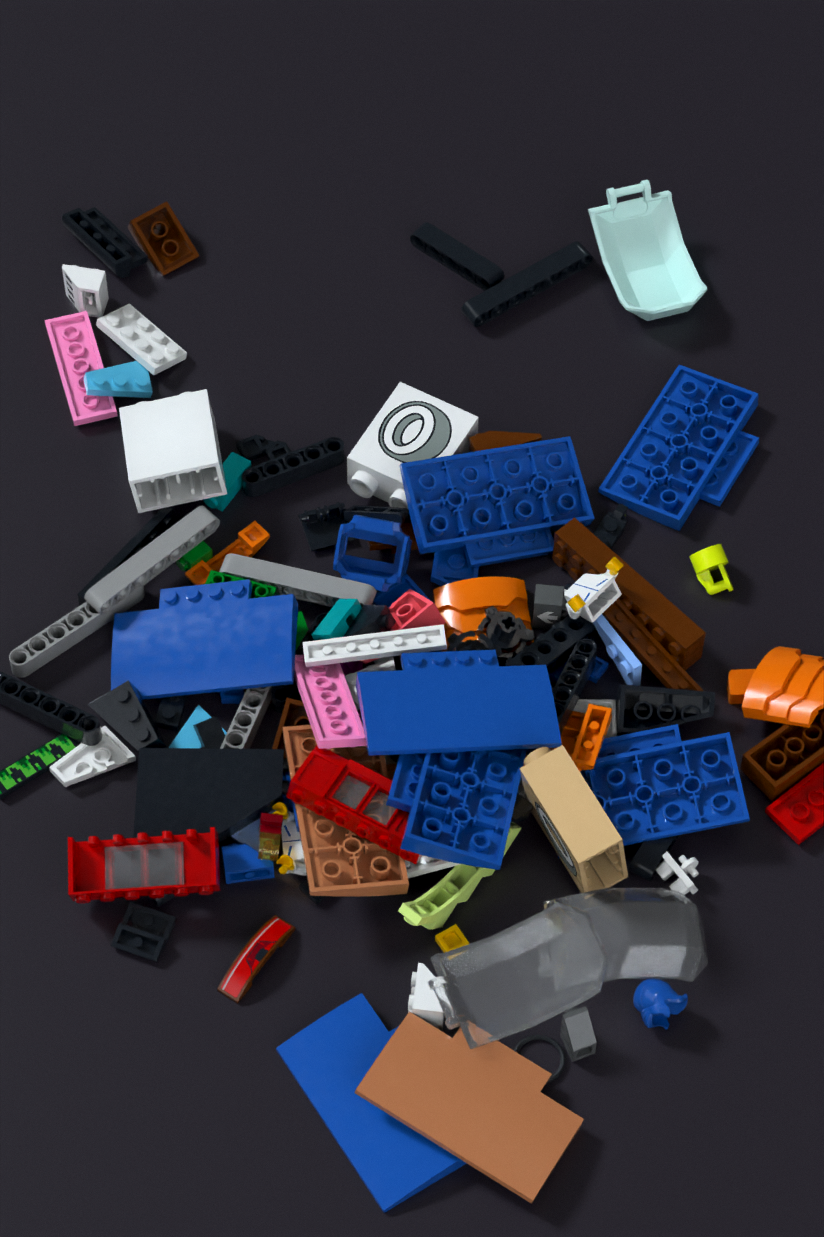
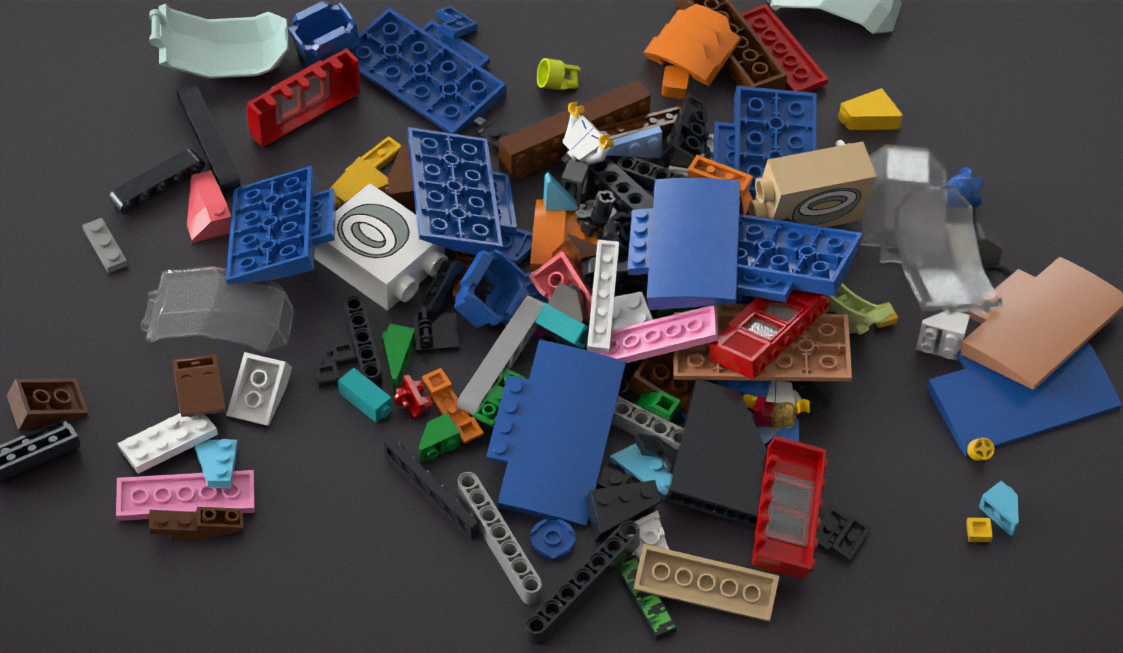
camera: 80 degrees left, 5 degrees down
(48, 379) = (202, 524): none -> reddish brown slope
(51, 808) = (706, 582): none -> tan arch
(86, 289) = (95, 470): white slope -> none
(89, 674) = (552, 539): none -> blue tile
(152, 560) = (454, 456): light grey beam -> none
(172, 451) = (330, 419): white brick -> none
(172, 1068) = (979, 529): none -> yellow plate
(199, 343) = (198, 386): none -> reddish brown slope
(205, 1089) = (1001, 506): none -> medium azure slope
(227, 390) = (258, 388): none -> white slope
(227, 525) = (410, 397): none -> red hips
(253, 957) = (880, 452): slope -> none
(262, 733) = (660, 405): none -> green slope
(272, 1056) = (986, 448): none -> yellow wheel
(285, 497) = (398, 347): none -> green slope
(299, 344) = (206, 306): none -> clear windscreen
(367, 238) = (105, 245): none -> light grey plate
(403, 356) = (278, 227): none -> blue slope
(433, 308) = (207, 208): none -> coral wedge
(453, 619) = (580, 249): none -> reddish brown slope
(495, 413) = (356, 179): none -> yellow slope
(520, 590) = (556, 196): none -> medium azure slope
(528, 422) = (382, 153): none -> yellow tile
(591, 342) = (303, 97): none -> red window
(694, 331) = (323, 32): none -> blue piece
(761, 892) = (870, 112): none -> yellow slope
(762, 466) = (455, 22): none -> blue tile

